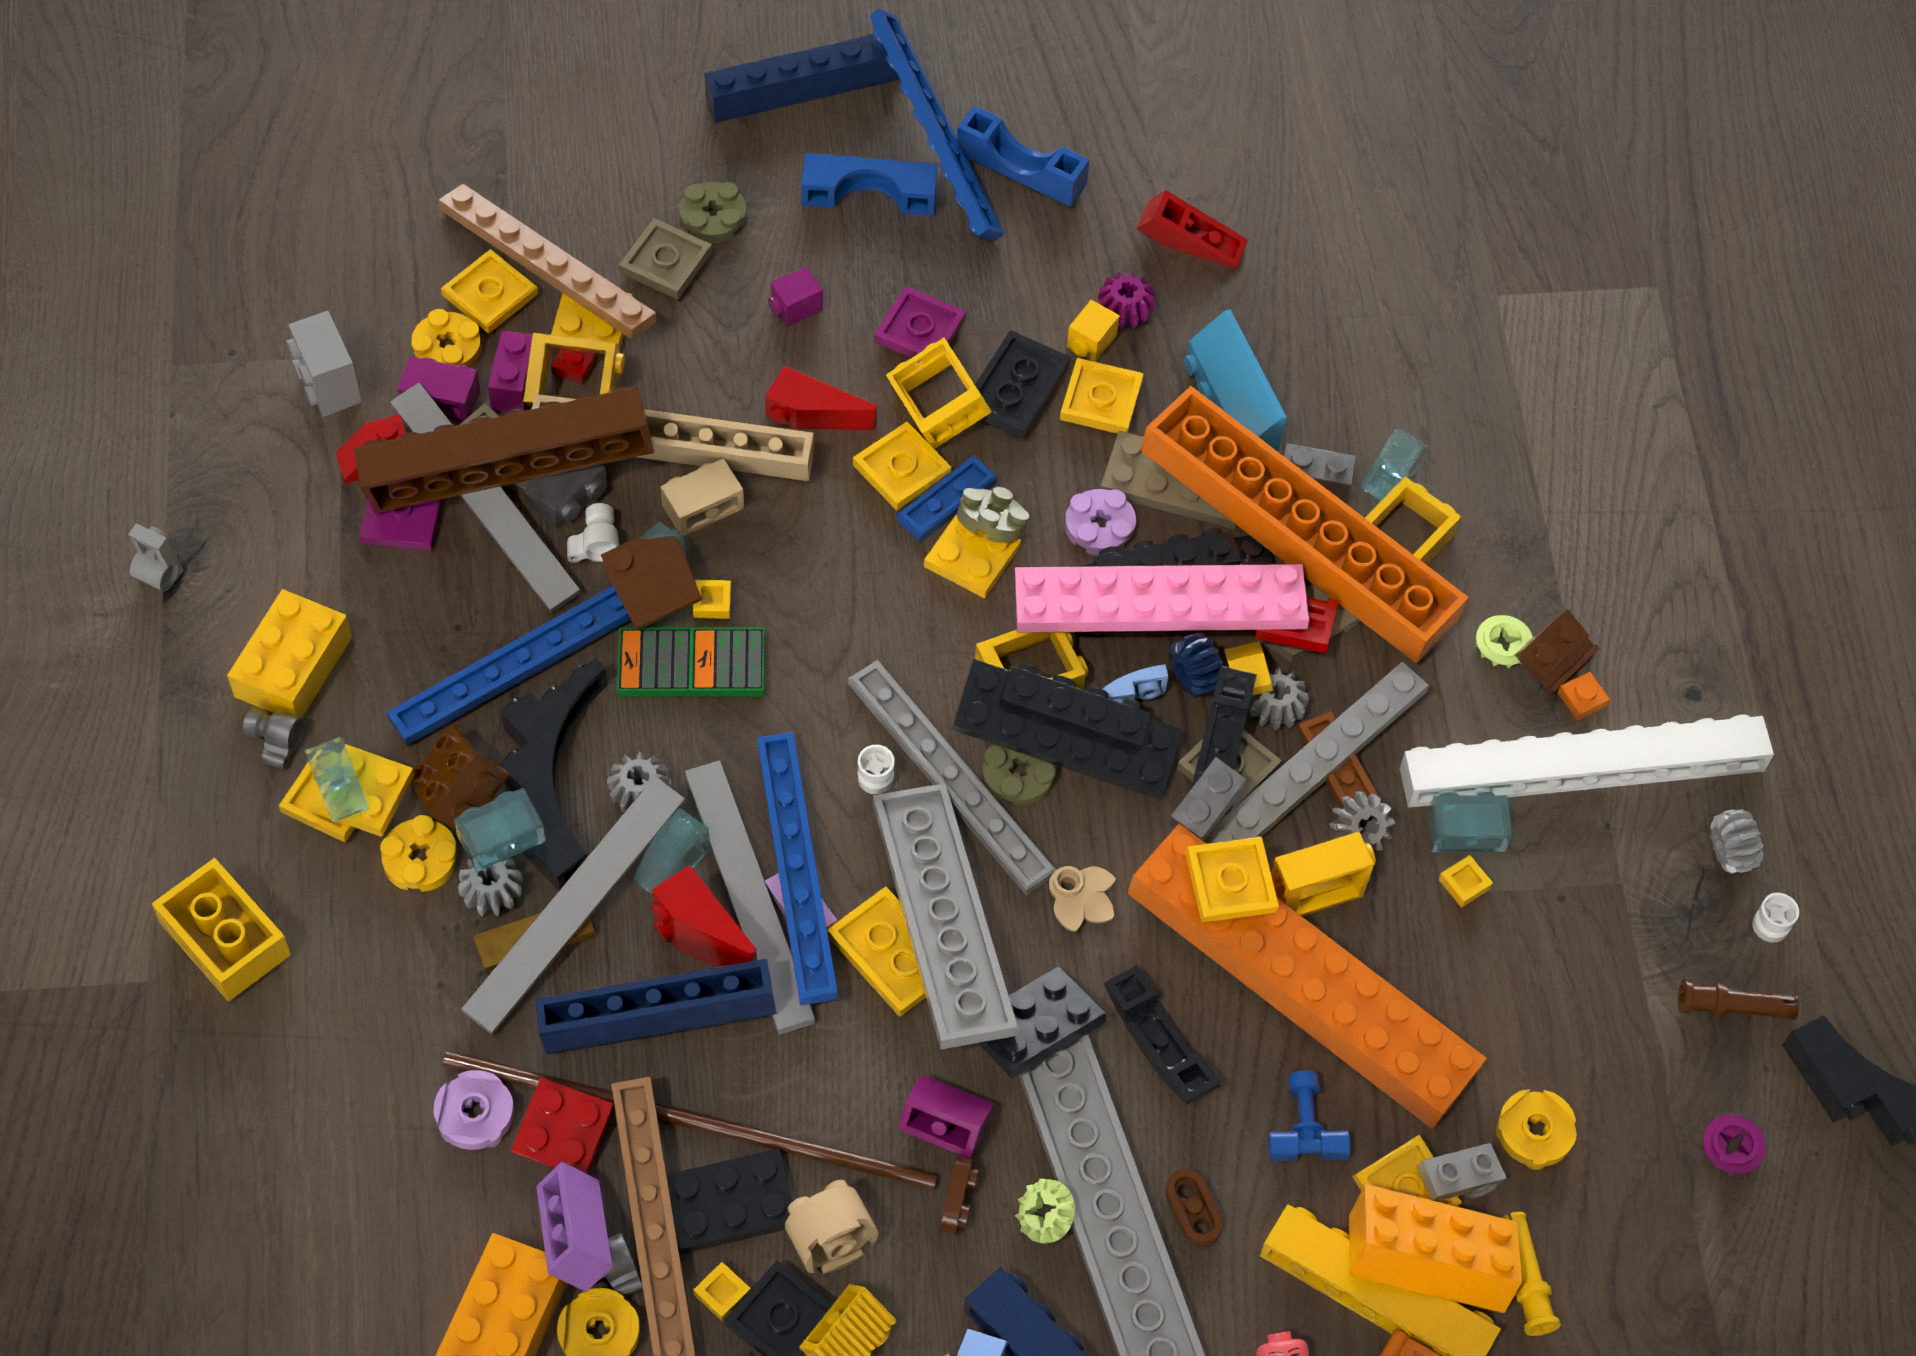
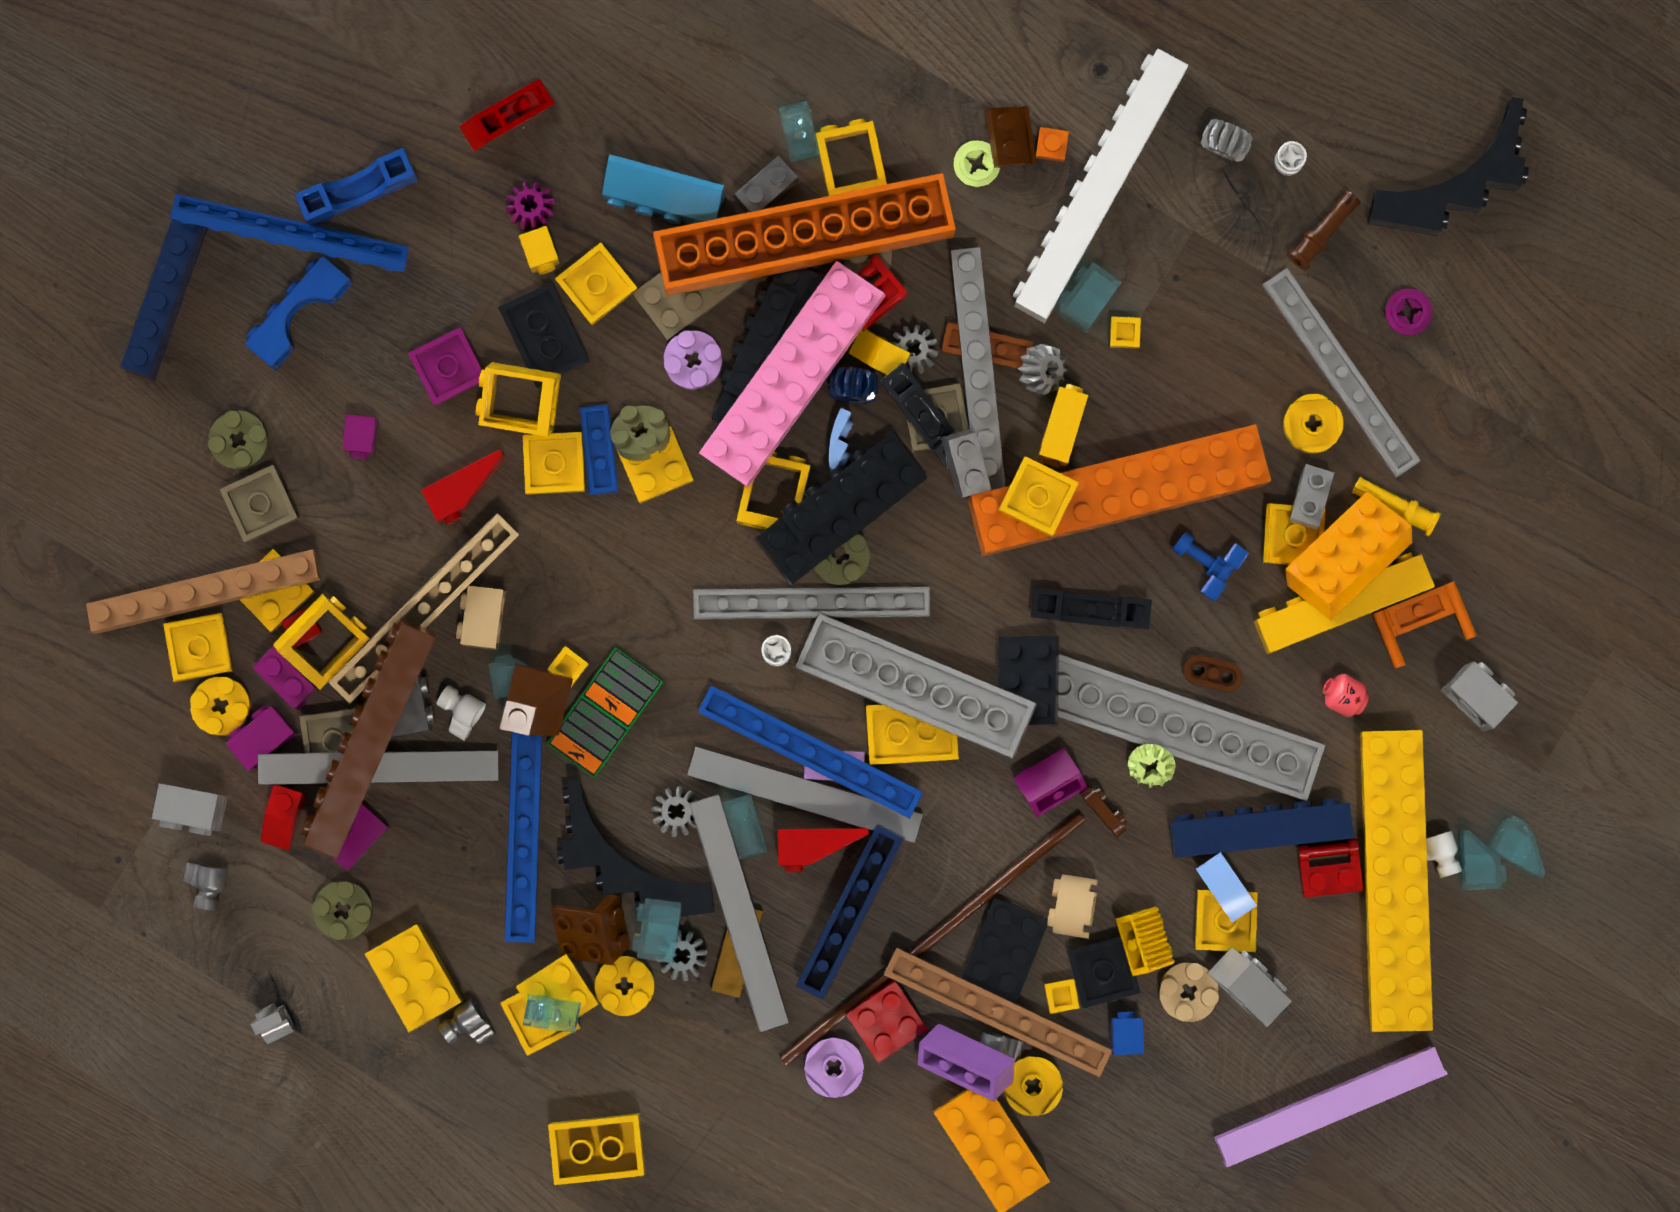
camera: 50 degrees left, 25 degrees up
(263, 430) = (208, 881): none -> flat silver piece
(310, 542) = (338, 927): none -> olive plate
(1087, 898) = (963, 583): tan plate -> none
(1611, 1126) = (1341, 373): none -> light grey tile

